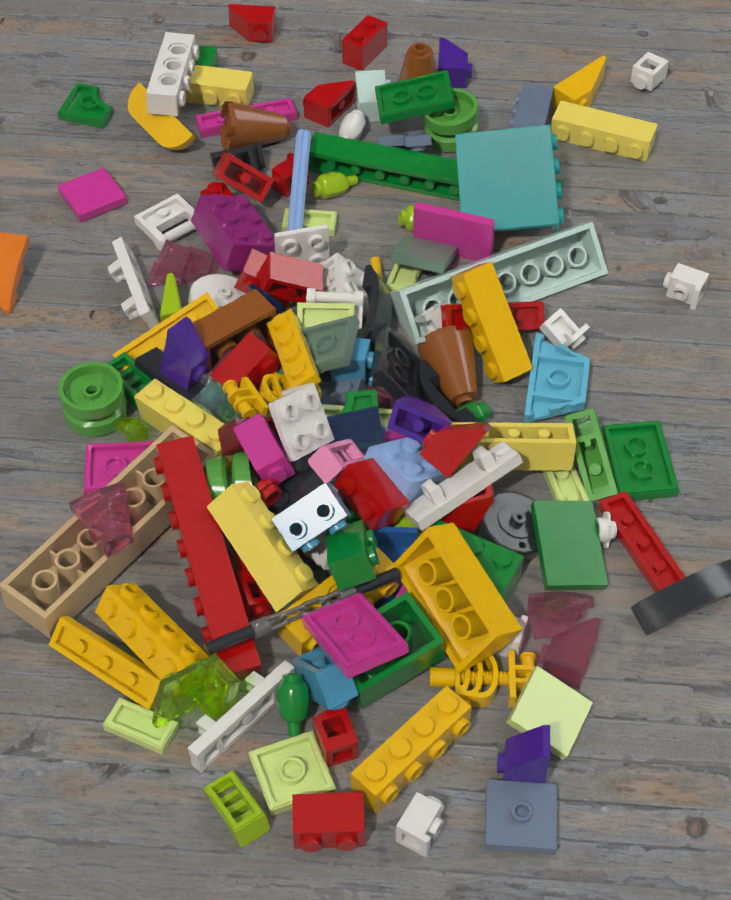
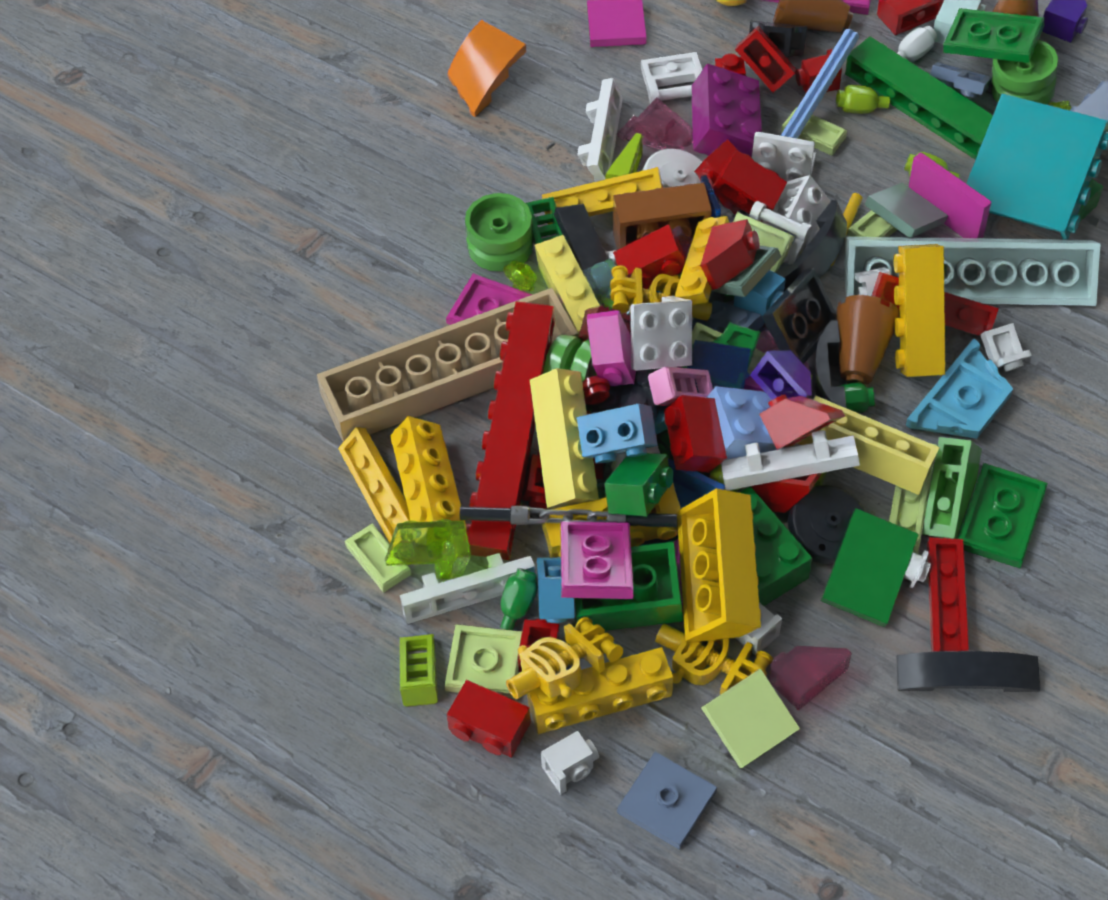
camera: 30 degrees right, 5 degrees up
(106, 517) = (441, 351): clear pink slope -> none
(184, 355) = (598, 223): dark purple slope -> none
(317, 332) = (729, 252): none -> red slope
(371, 741) = (552, 656): none -> yellow torso
(526, 756) = (699, 748): dark purple slope -> none
(556, 611) = (812, 625): clear pink slope -> none

